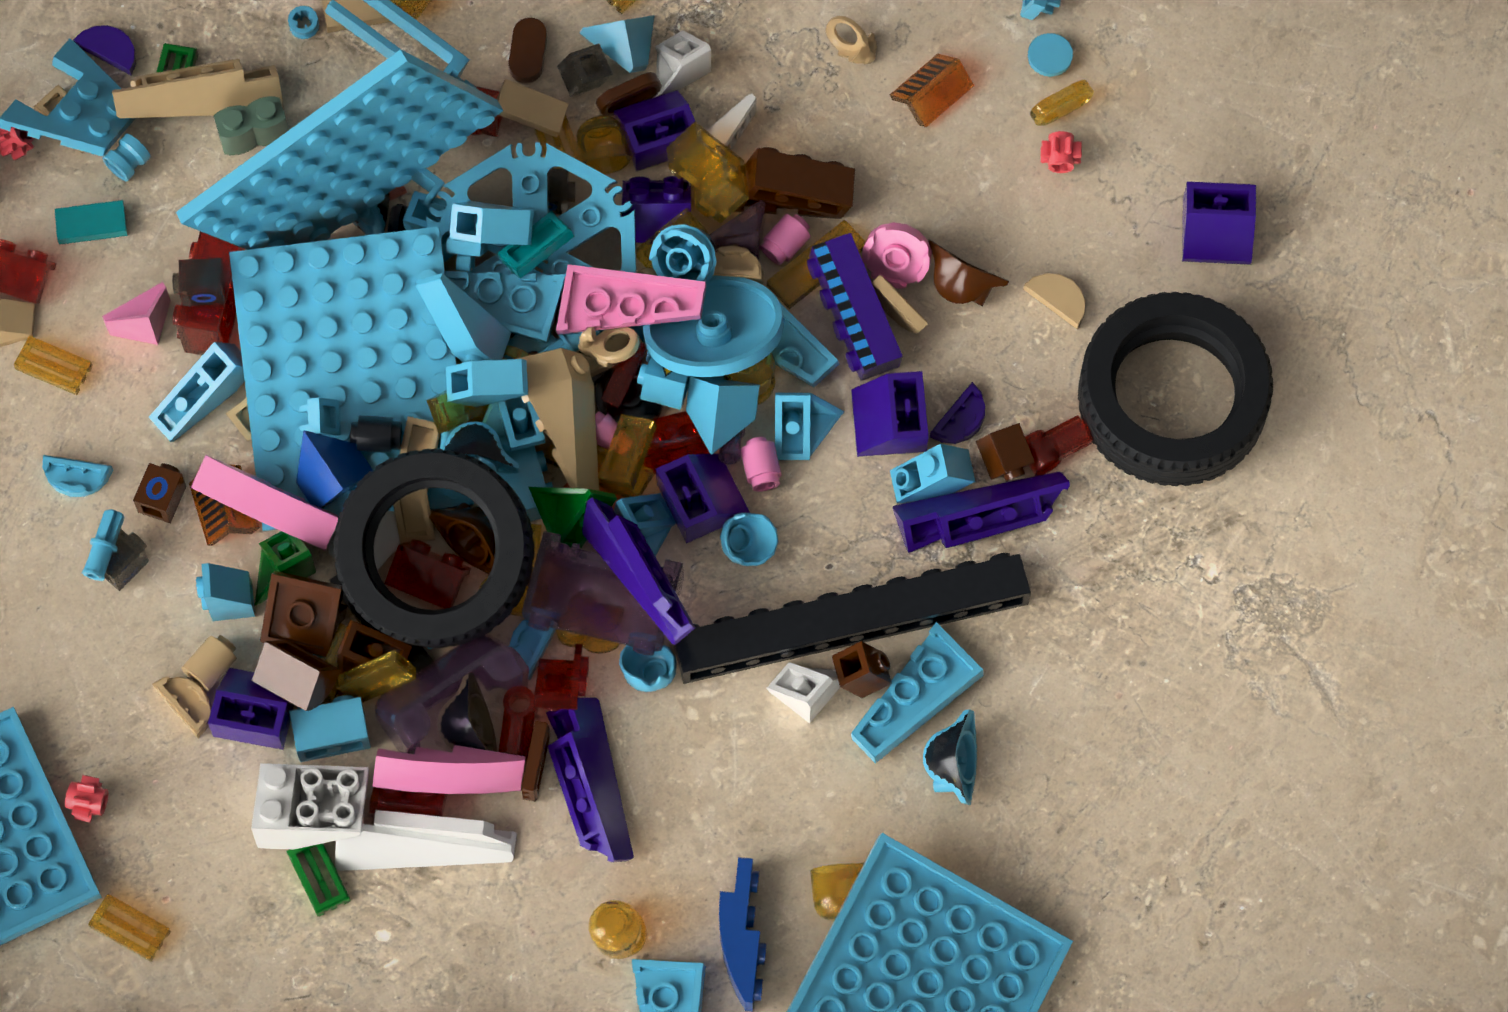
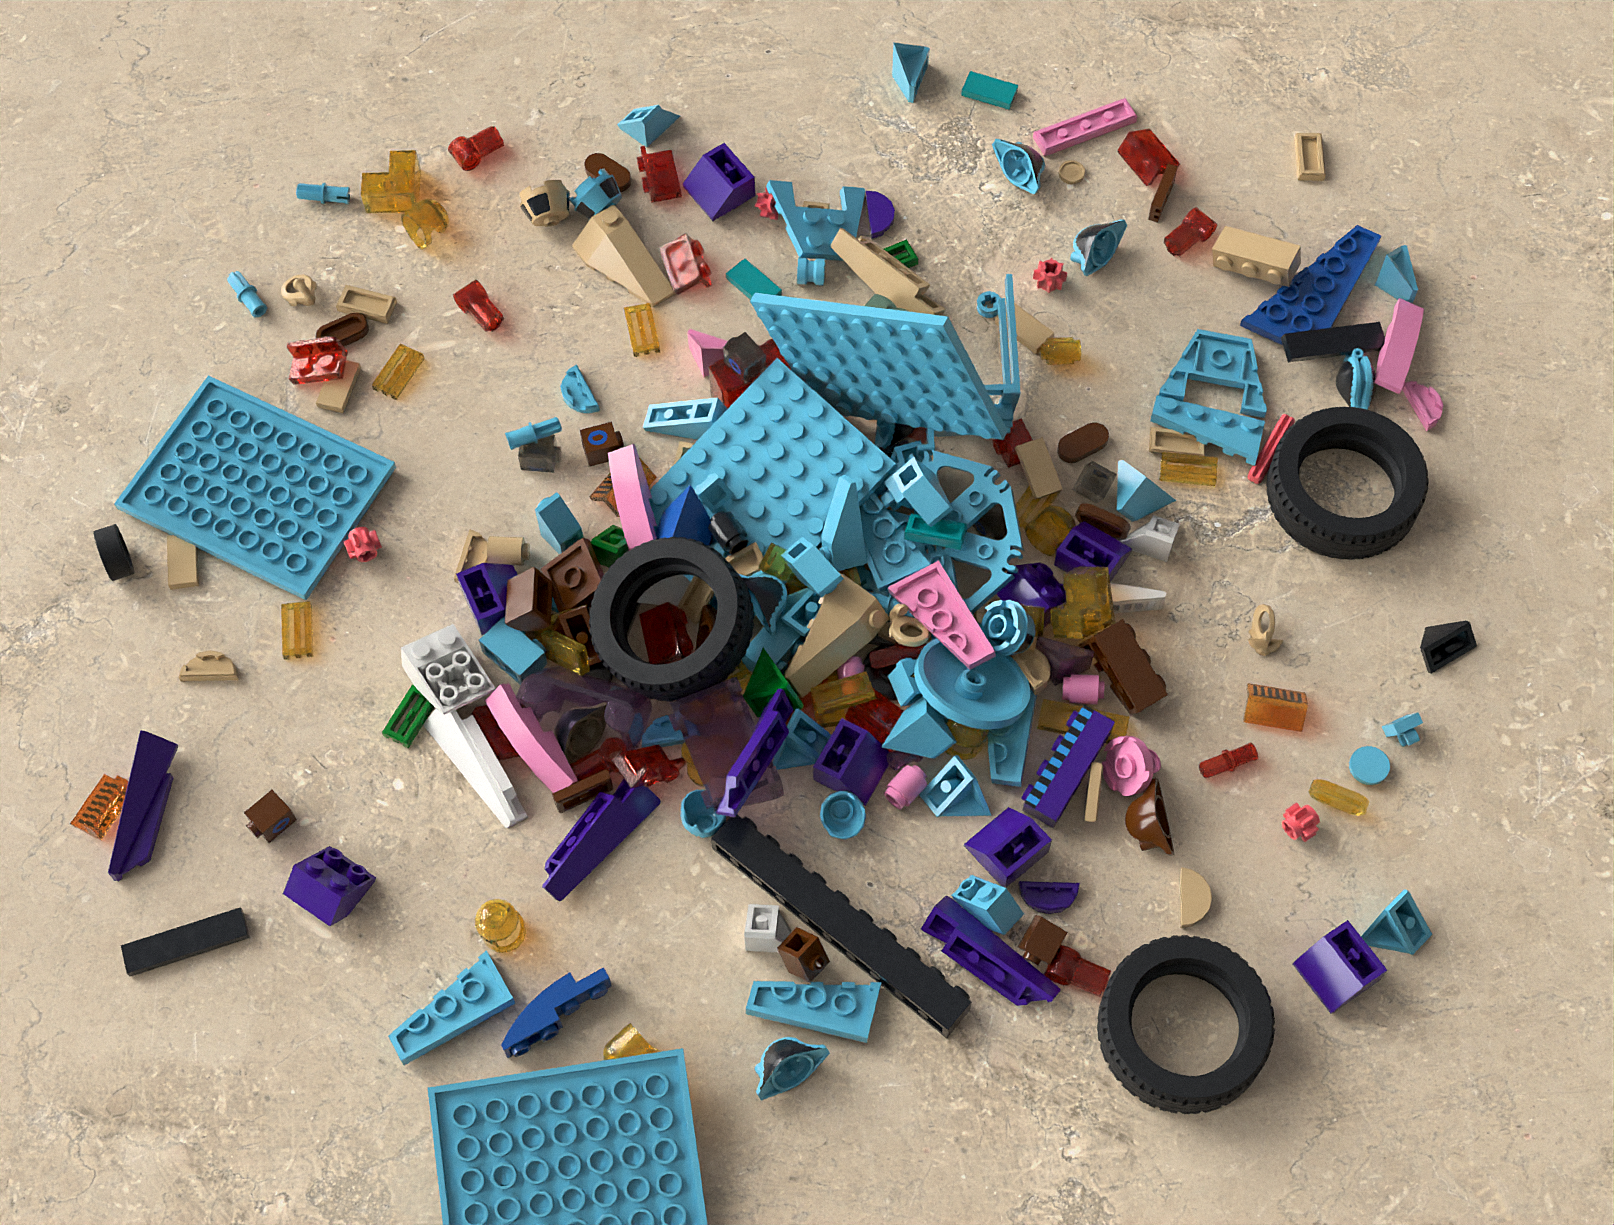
camera: 55 degrees right, 5 degrees down
(953, 167) = (1228, 760): none -> clear red axle
(1216, 146) = (1399, 926): none -> medium azure slope

